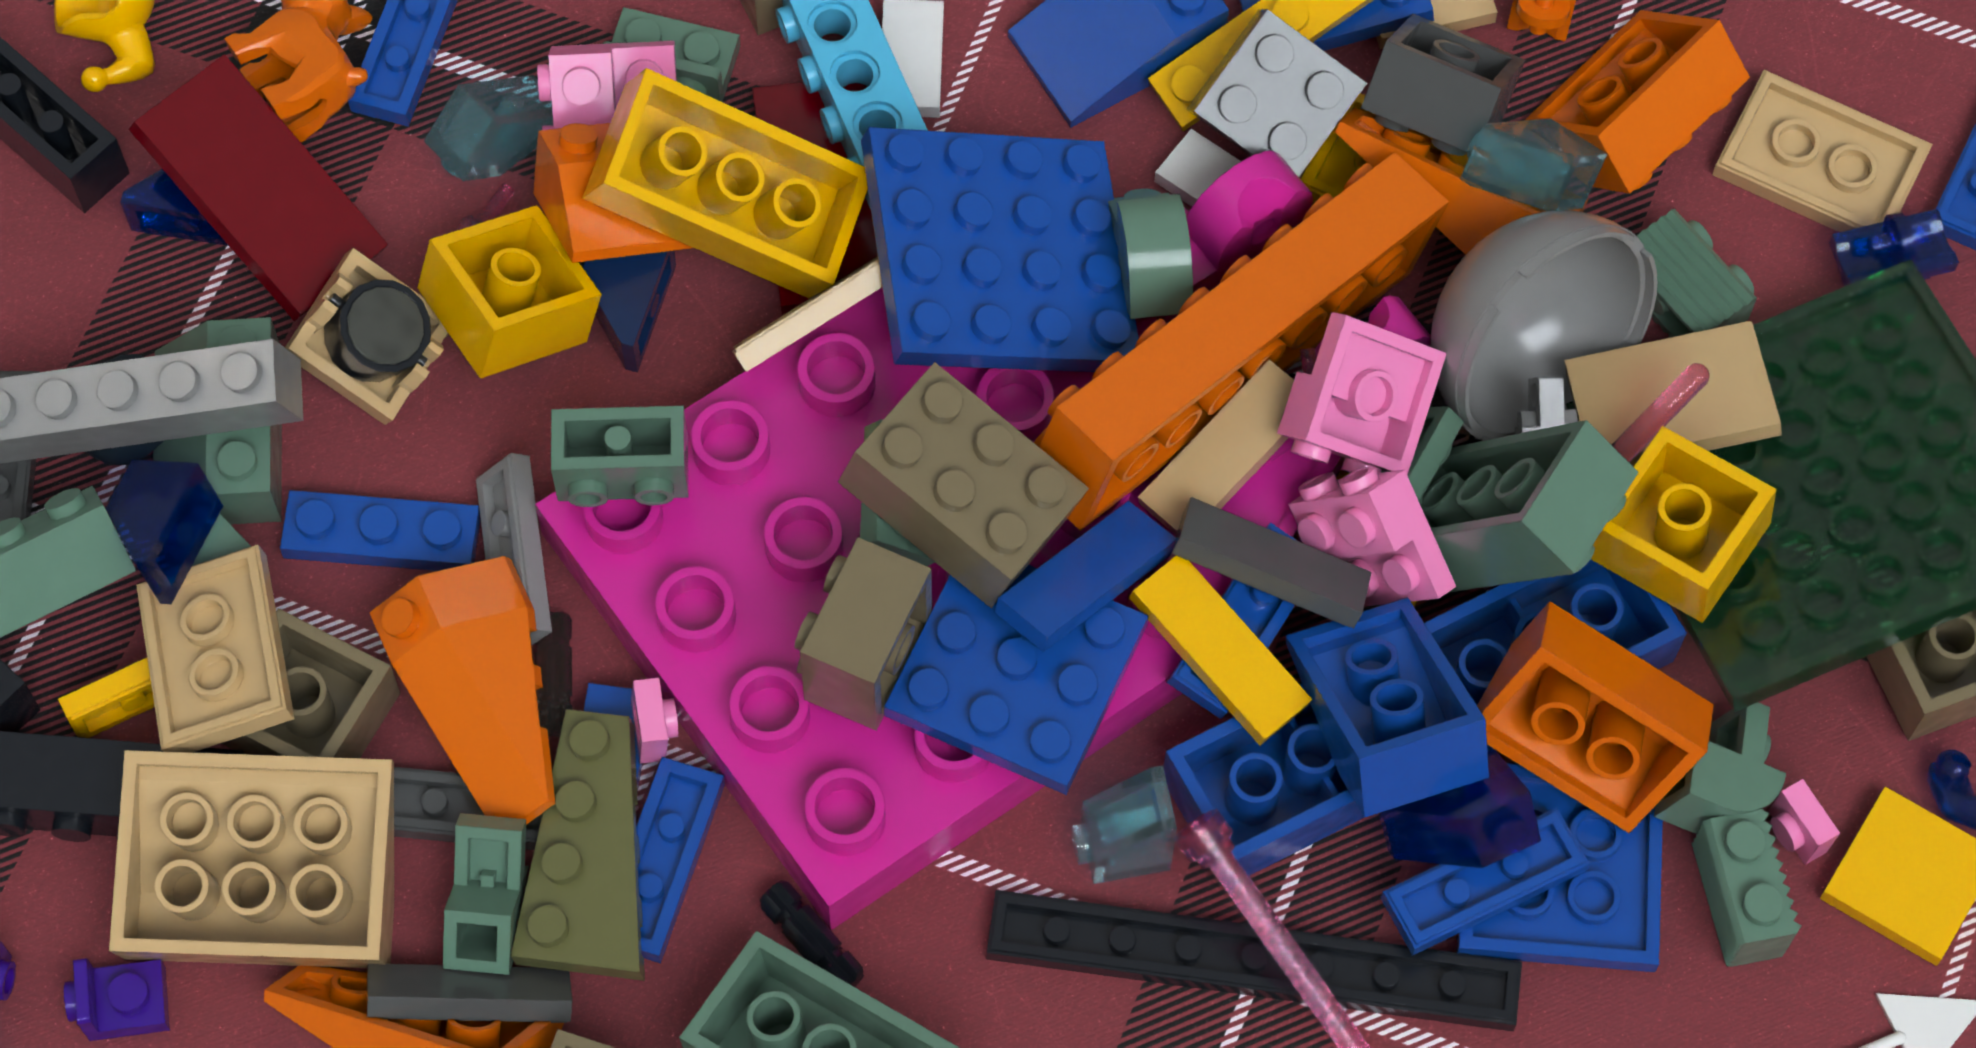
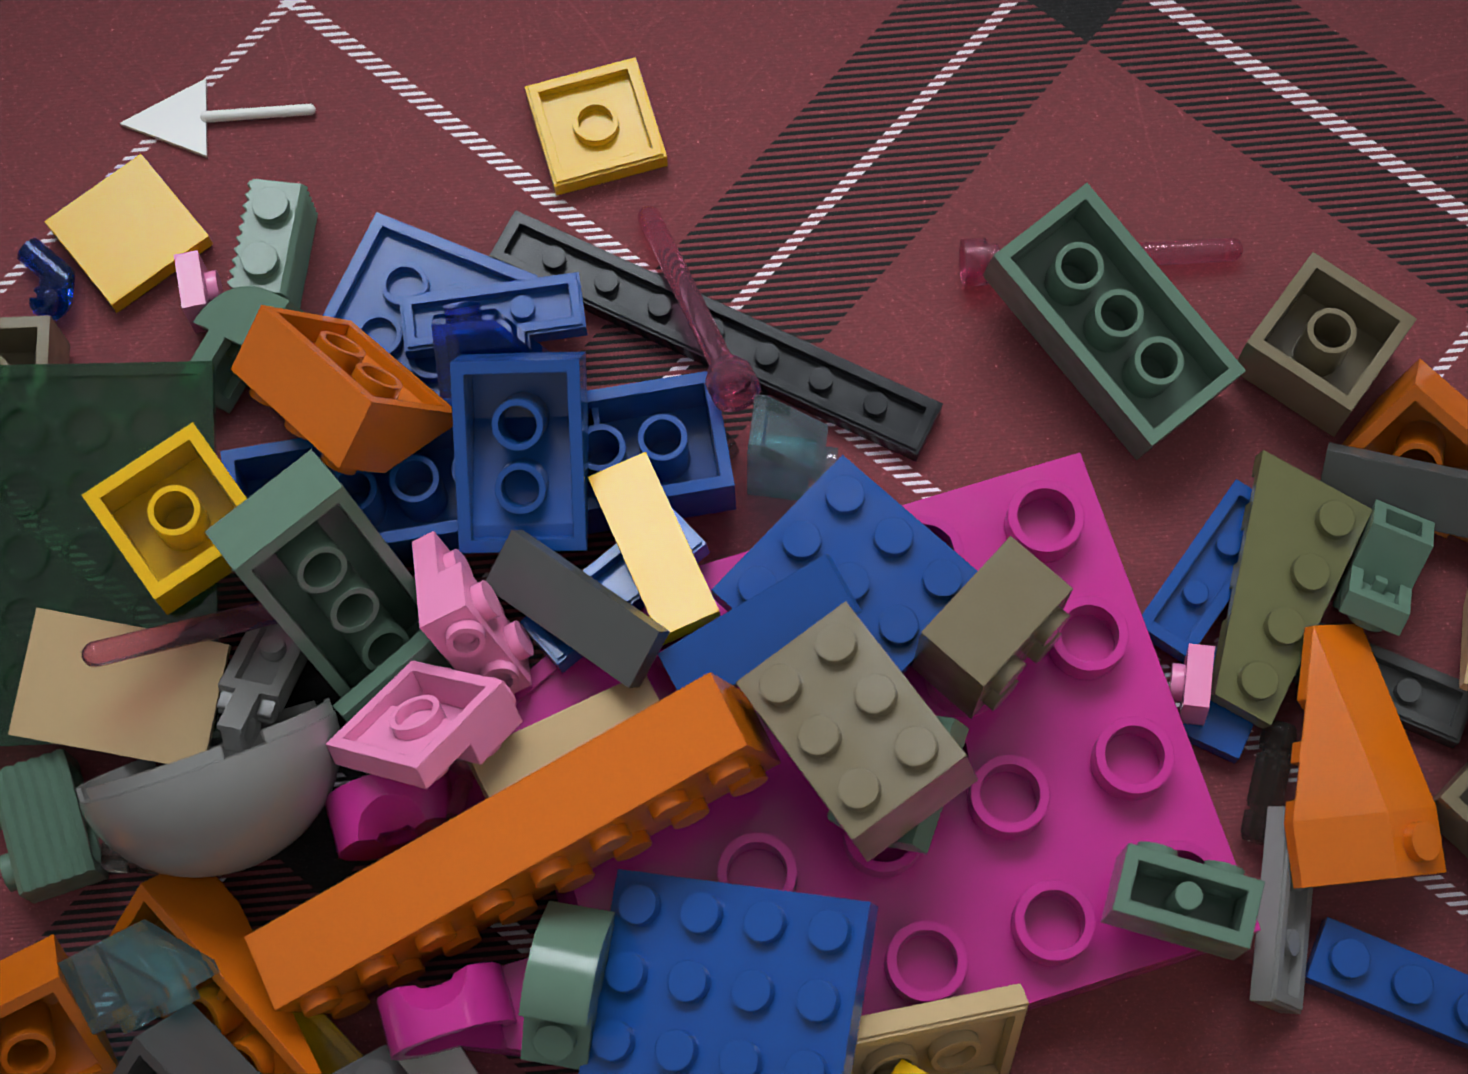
camera: 160 degrees left, 5 degrees up
(809, 933) = (1075, 431): black axle -> none

